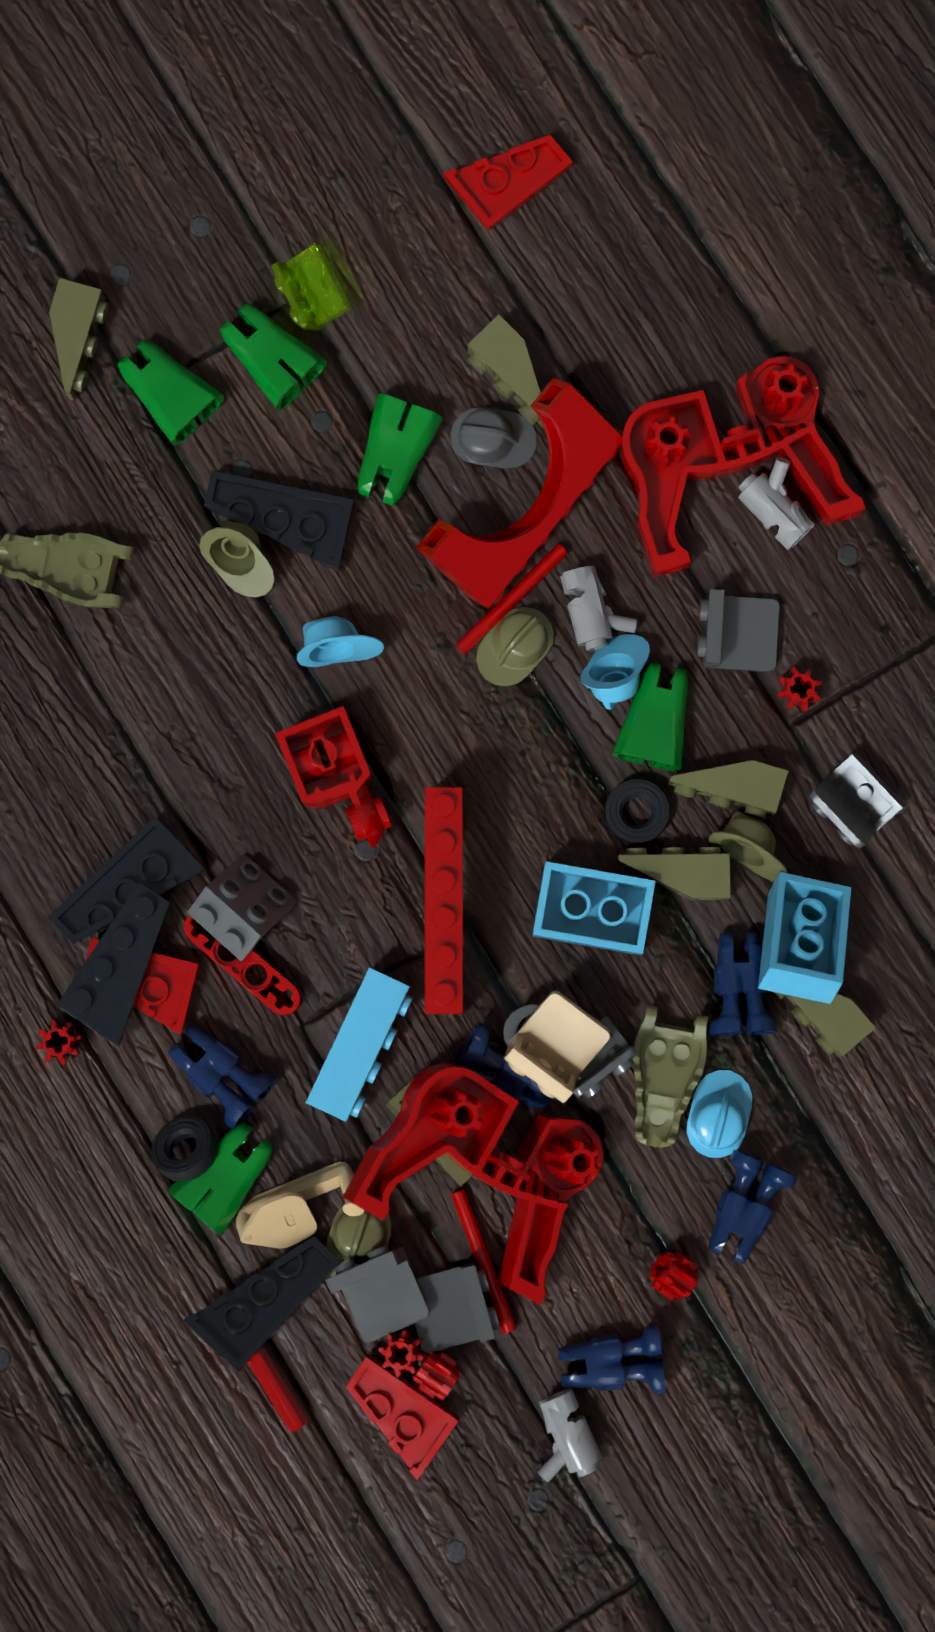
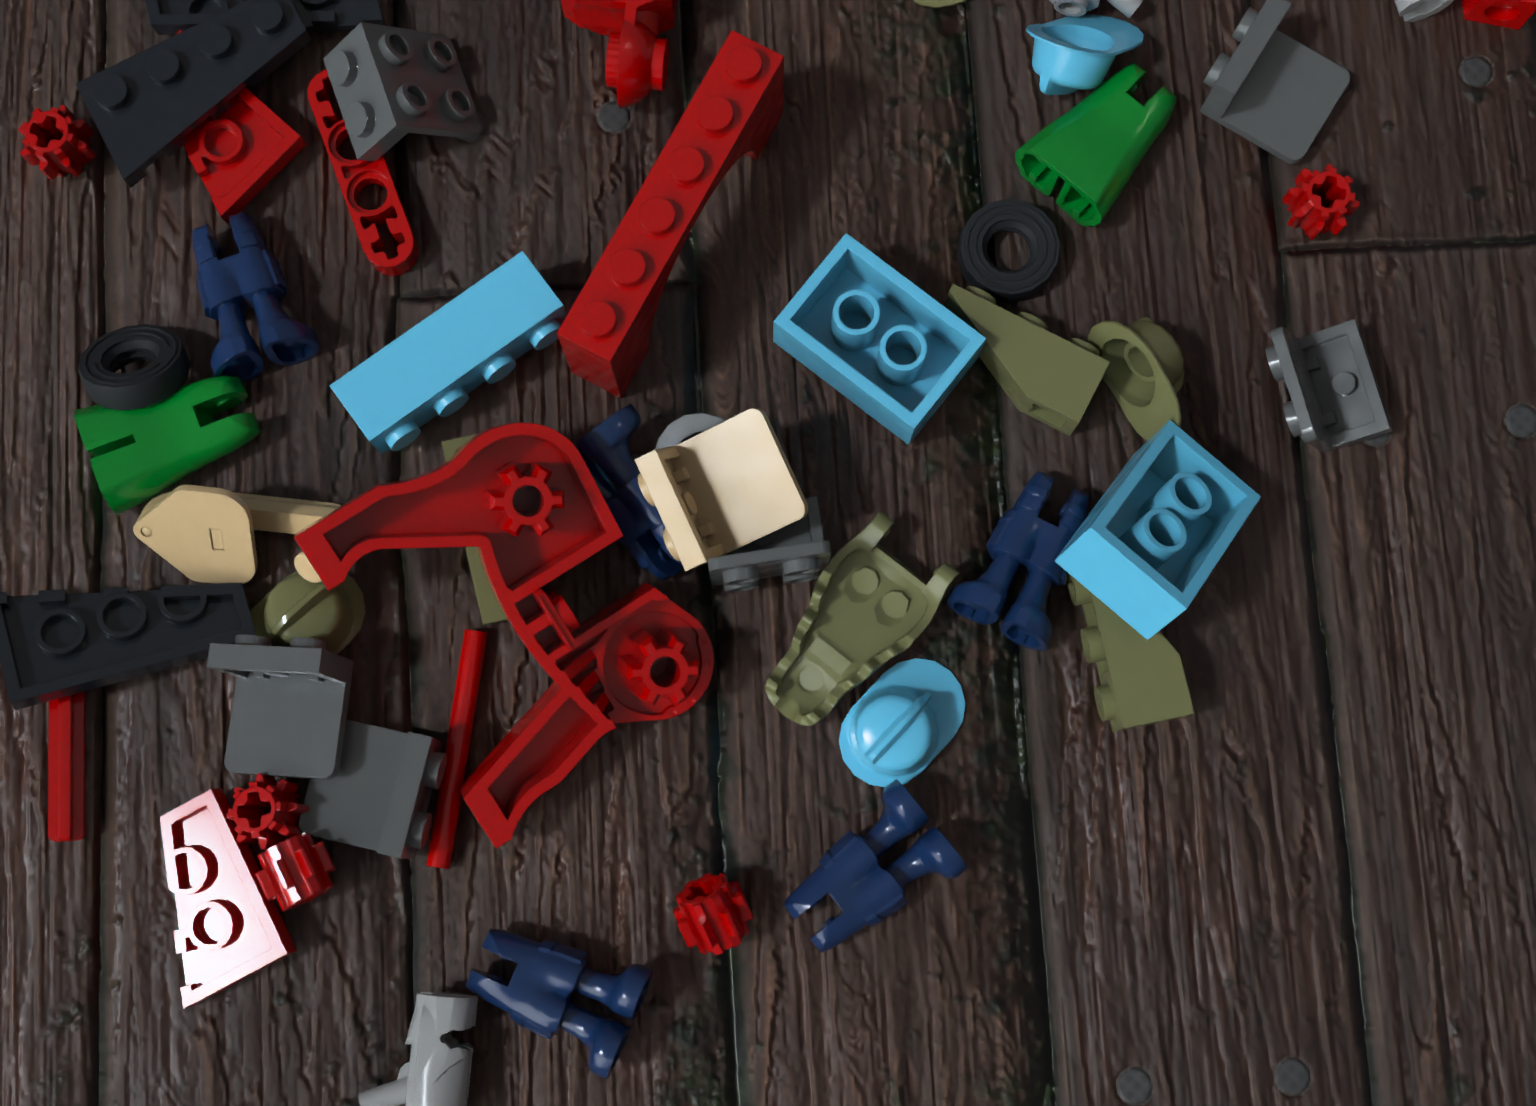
camera: 25 degrees right, 5 degrees down
(744, 784) = (1170, 282): olive slope -> none

